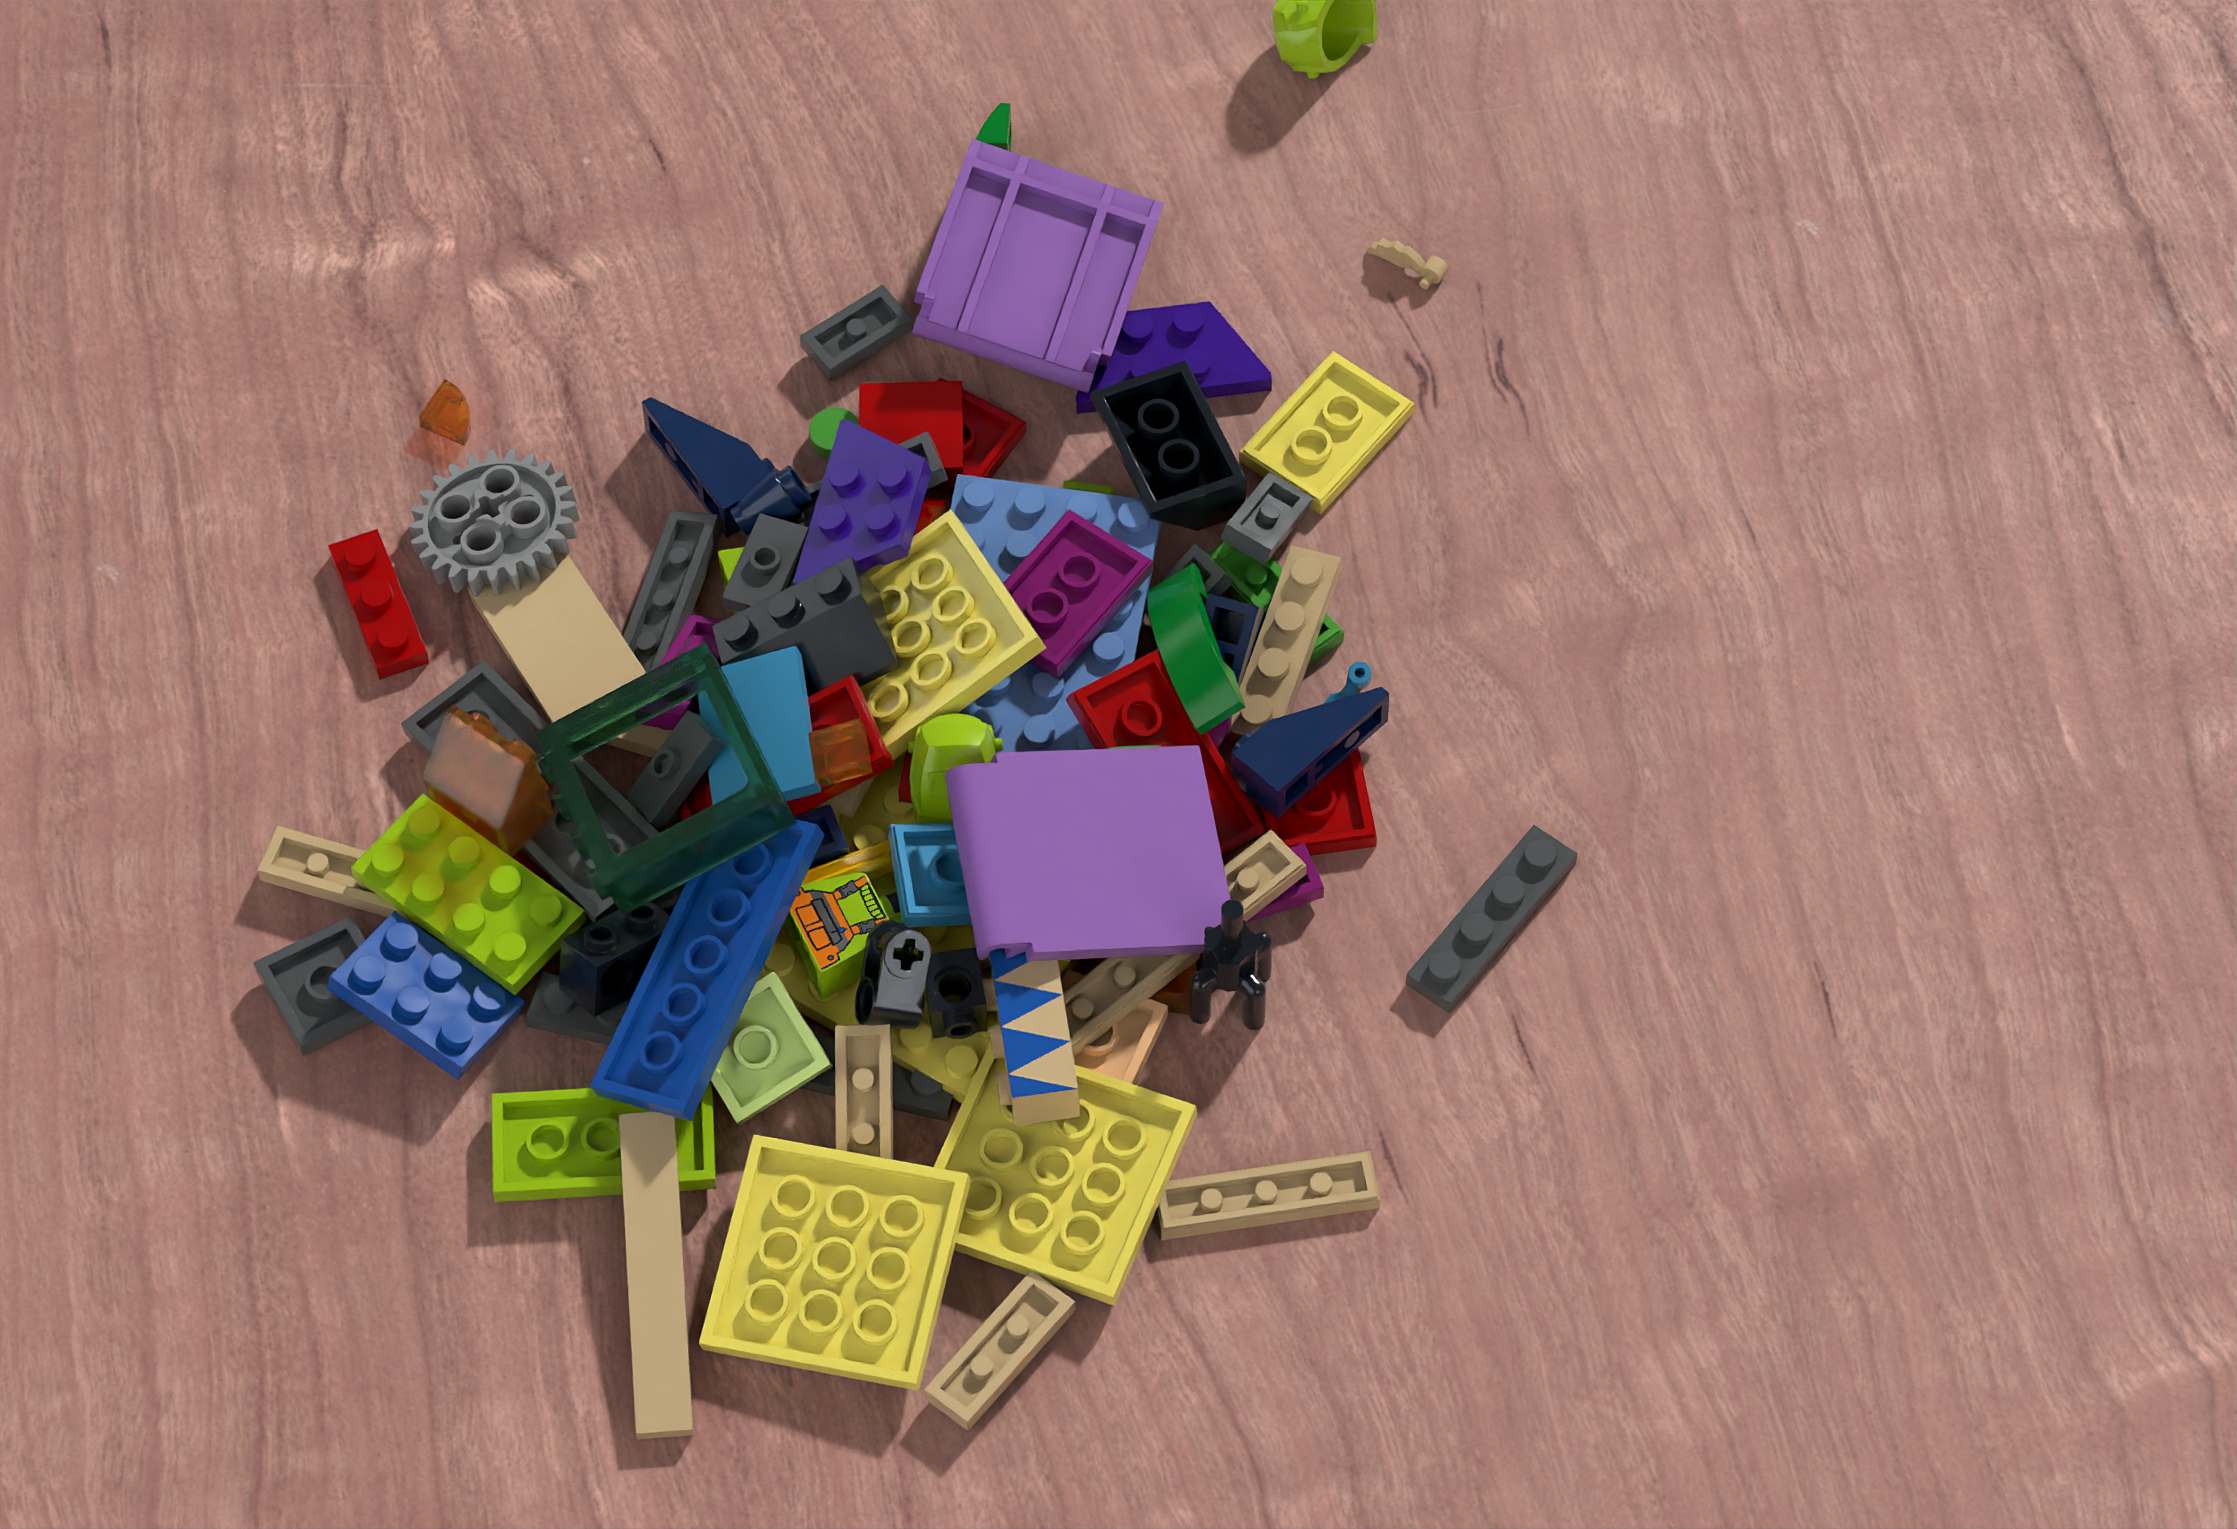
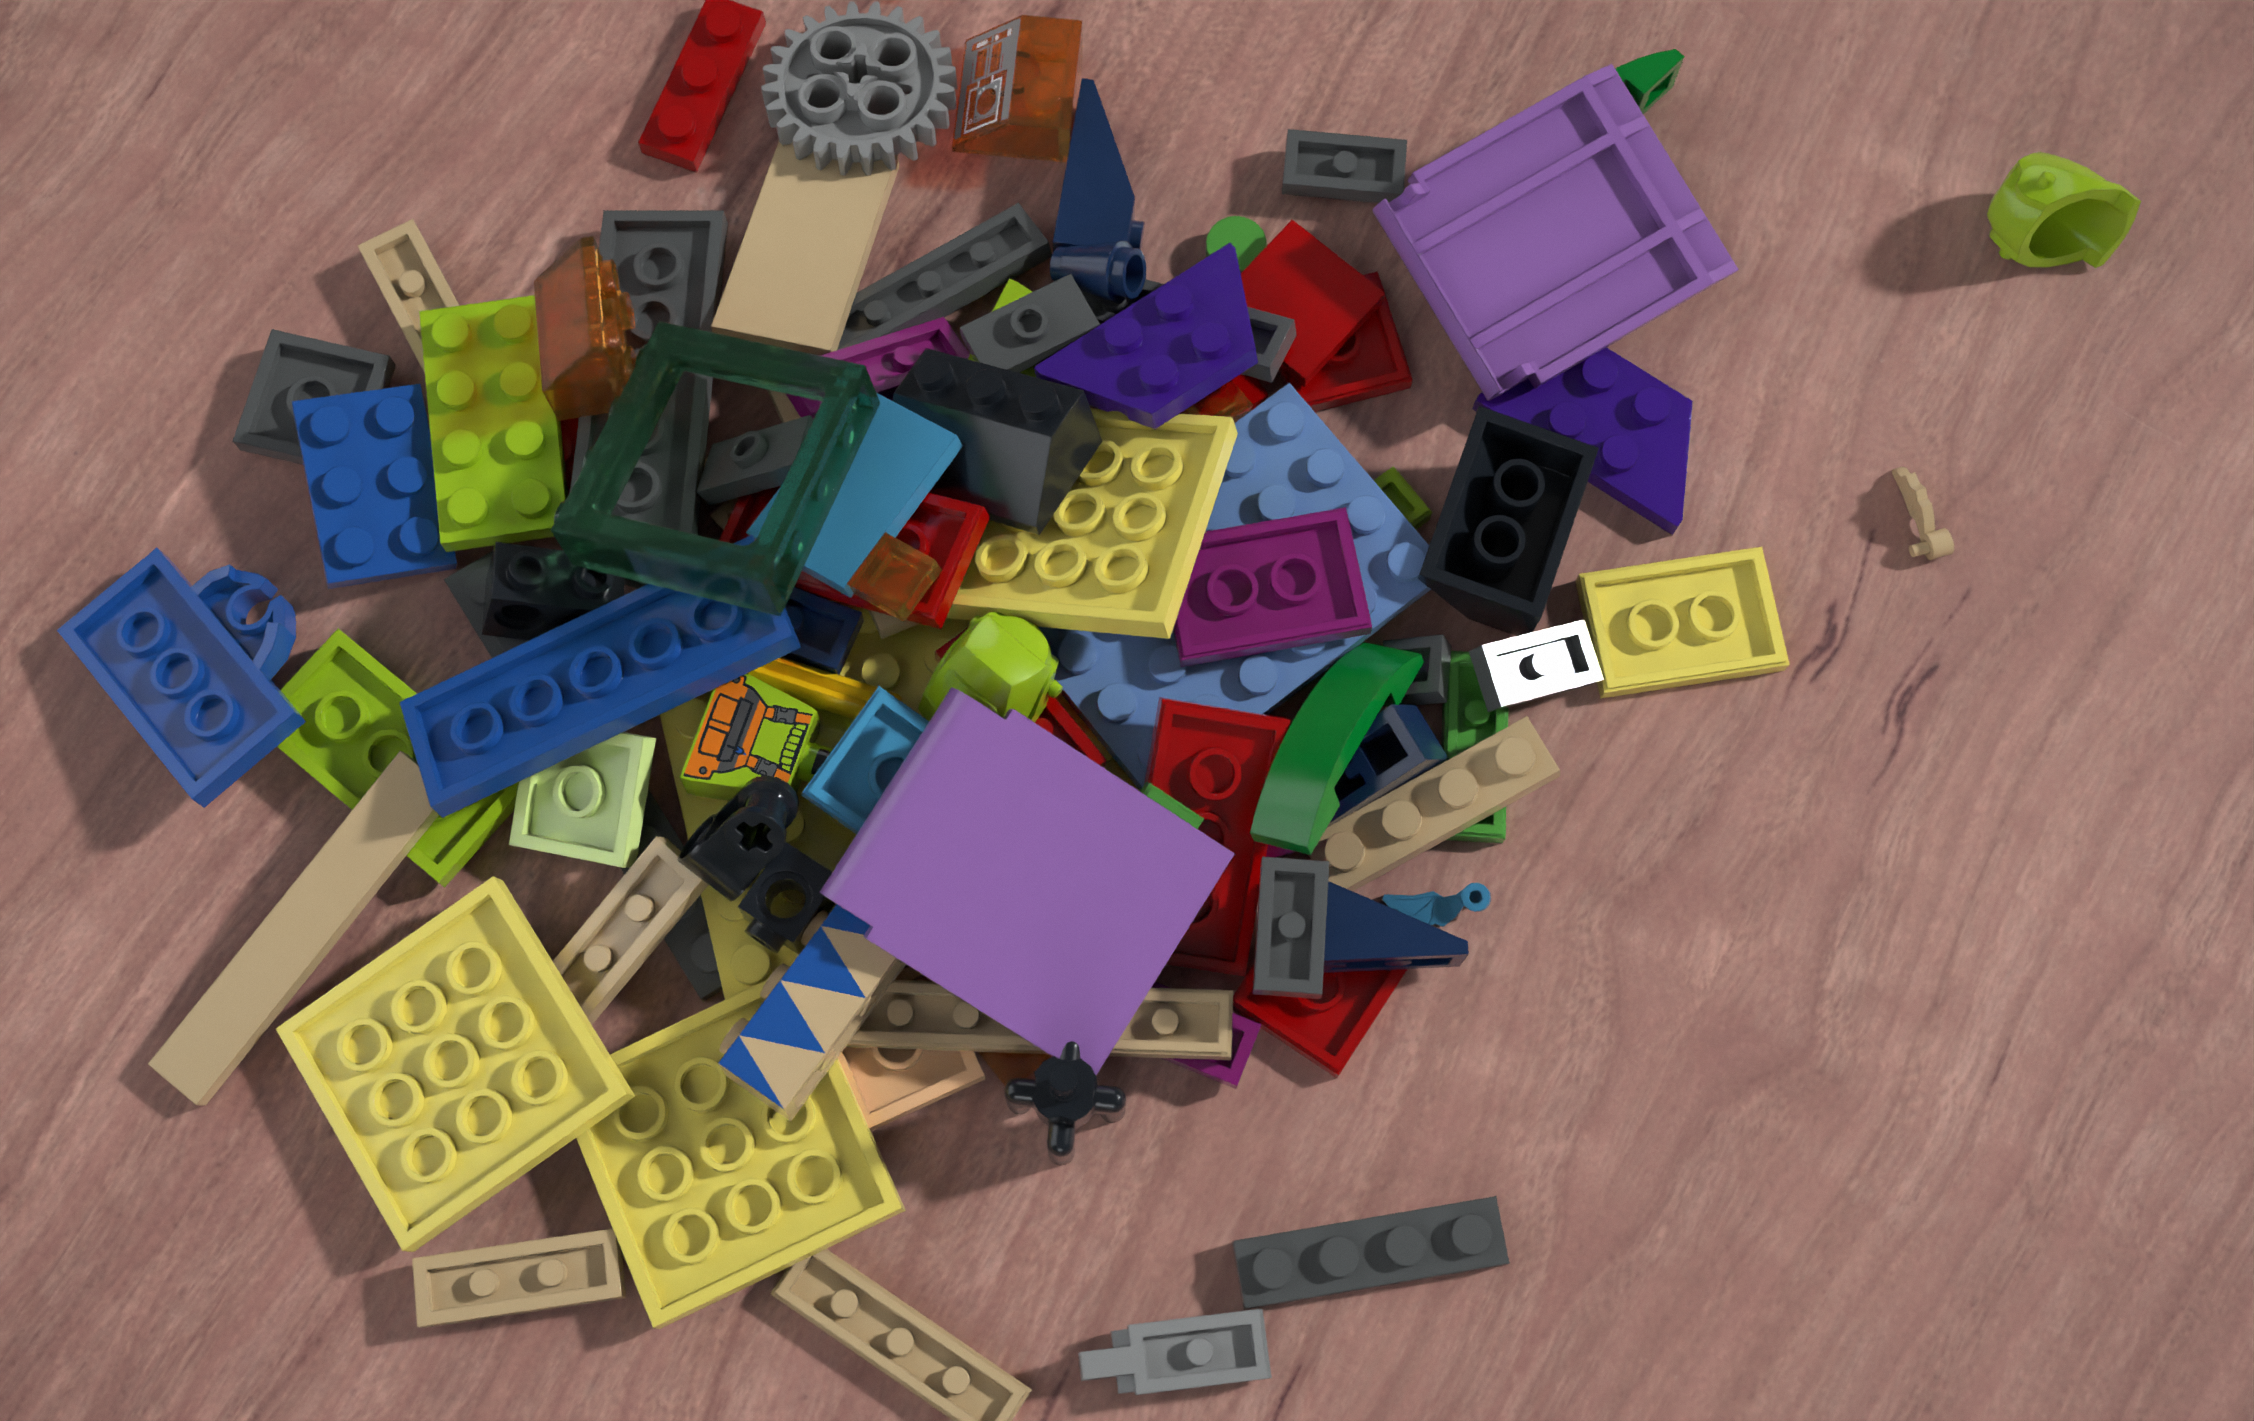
camera: 40 degrees right, 15 degrees up
(420, 1189) = (192, 667): none -> blue plate
(603, 443) = (1020, 89): none -> clear orange slope
(1274, 755) = (1291, 927): none -> dark grey plate
(1437, 1057) = (1183, 1353): none -> light grey hinge

